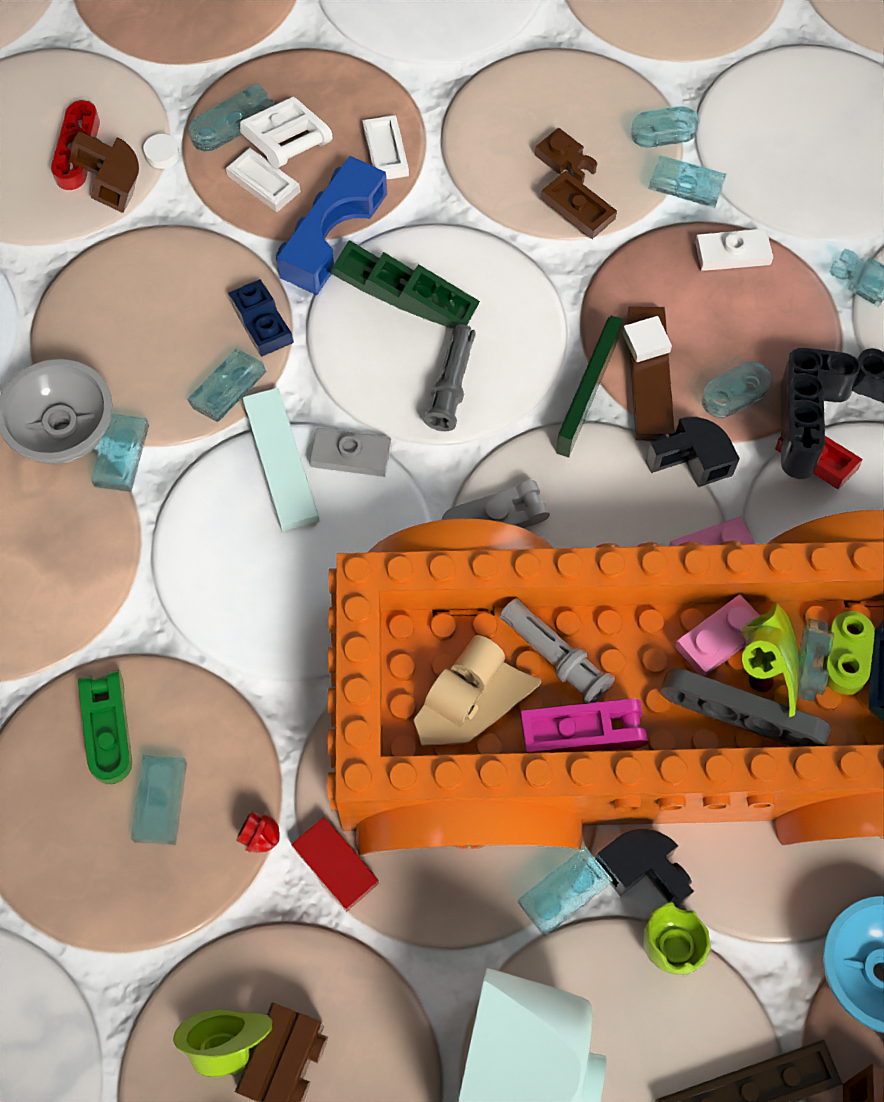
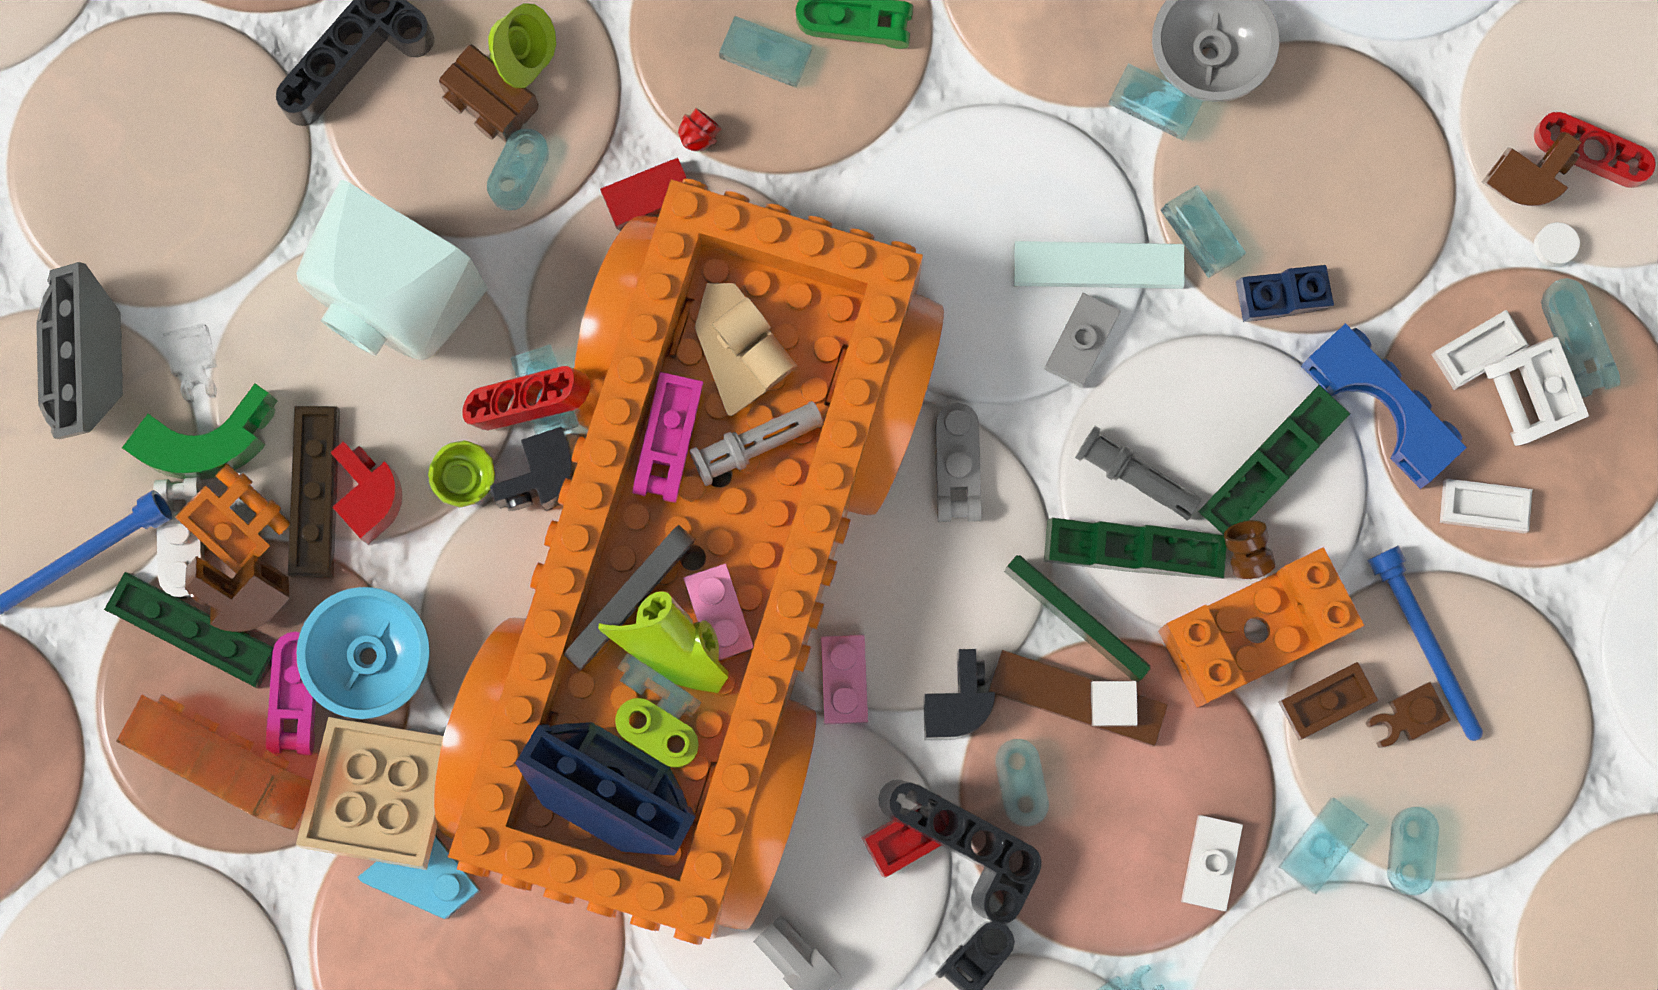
camera: 110 degrees right, 15 degrees up
(348, 1002) = (518, 167): none -> clear light blue plate
(457, 192) = (1391, 568): none -> blue piece
(484, 279) = (1249, 549): none -> reddish brown wheel
(513, 239) = (1299, 605): none -> orange plate
(514, 364) = (1135, 548): none -> dark green slope
(590, 889) = (525, 391): none -> red beam
(733, 1020) = (376, 498): none -> red brick

